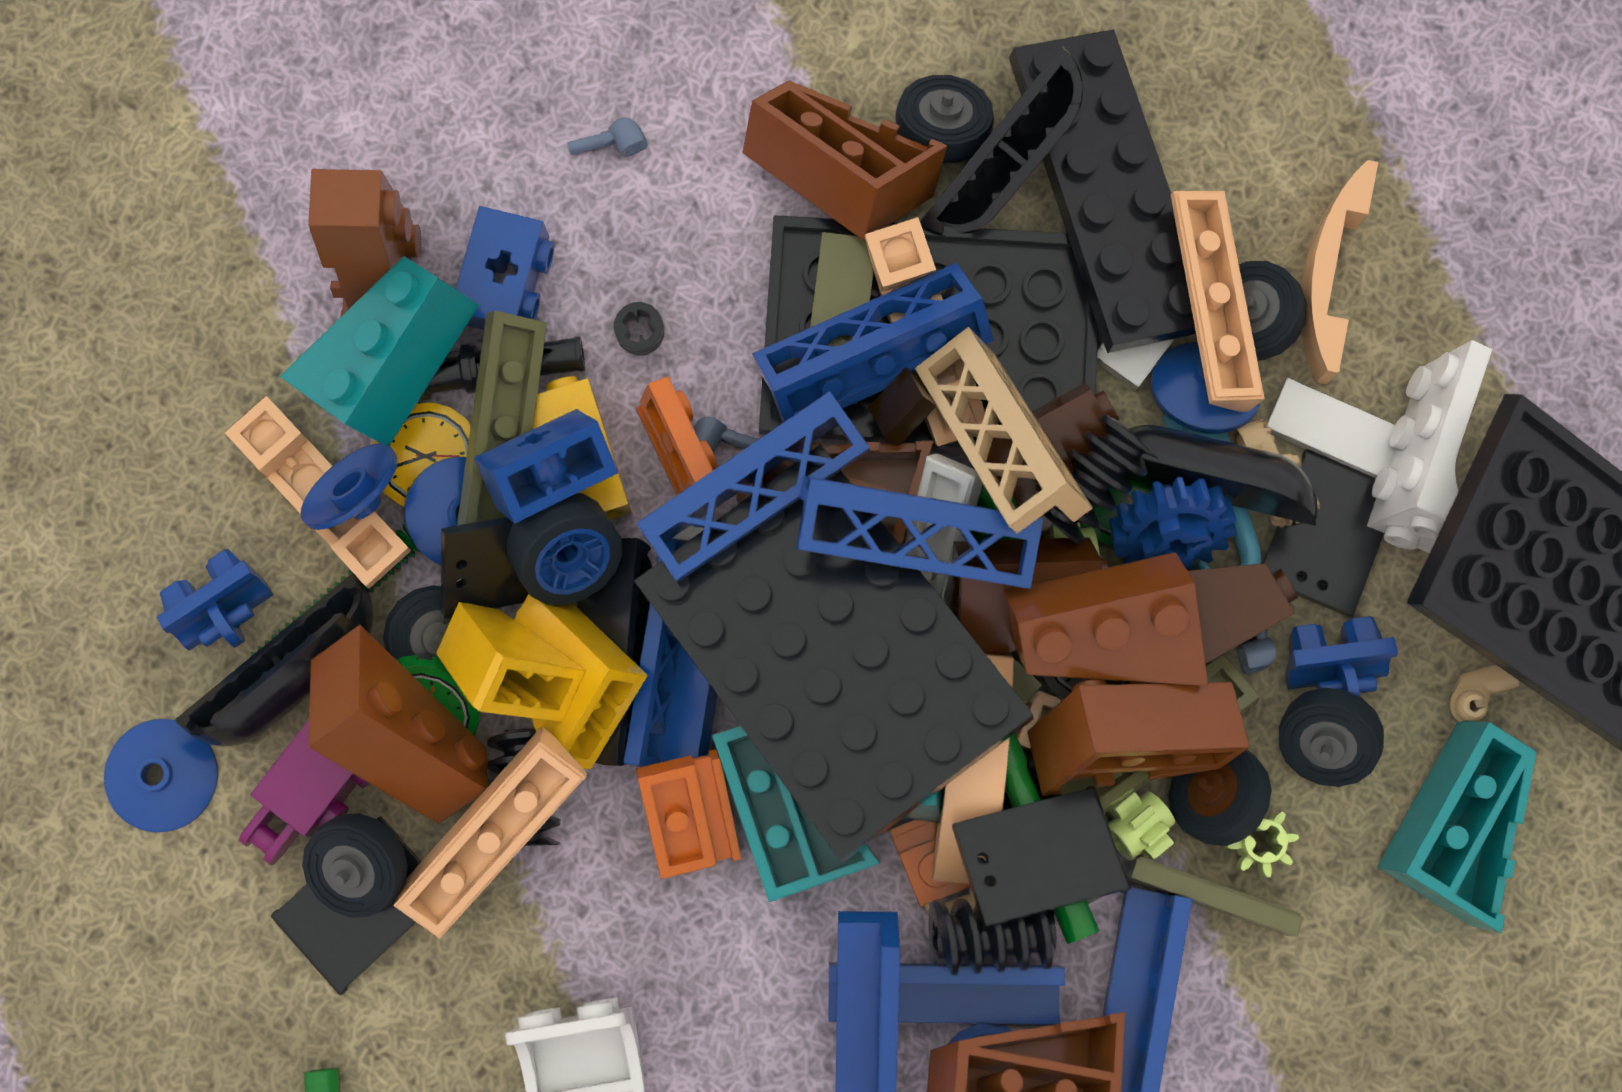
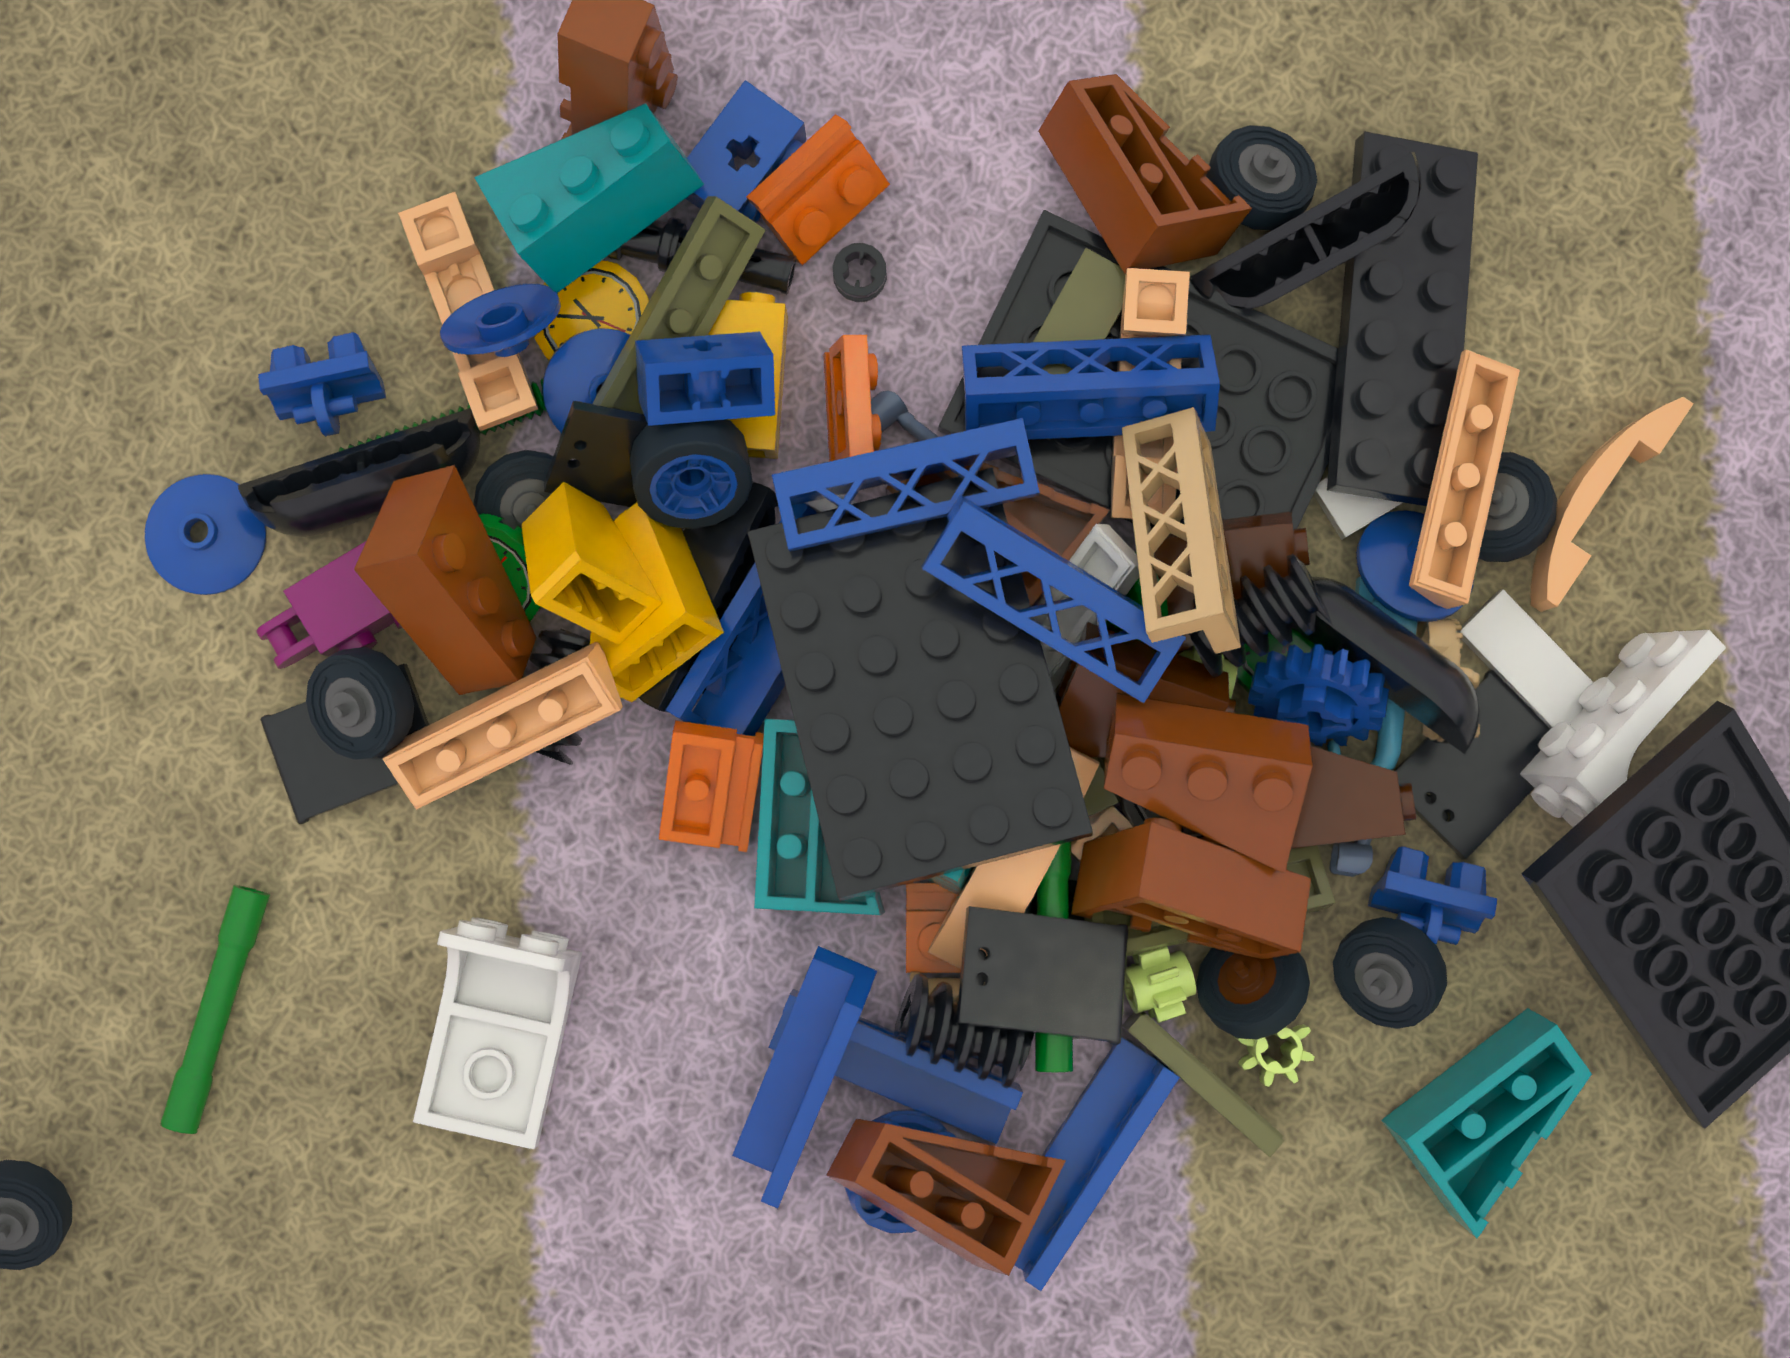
camera: 25 degrees right, 5 degrees up
(577, 273) = (818, 189): none -> orange plate
(622, 132) = (924, 60): sand blue hand -> none
(902, 406) = (1092, 462): dark brown tile -> none
(1474, 691) = (1556, 985): tan arm -> none

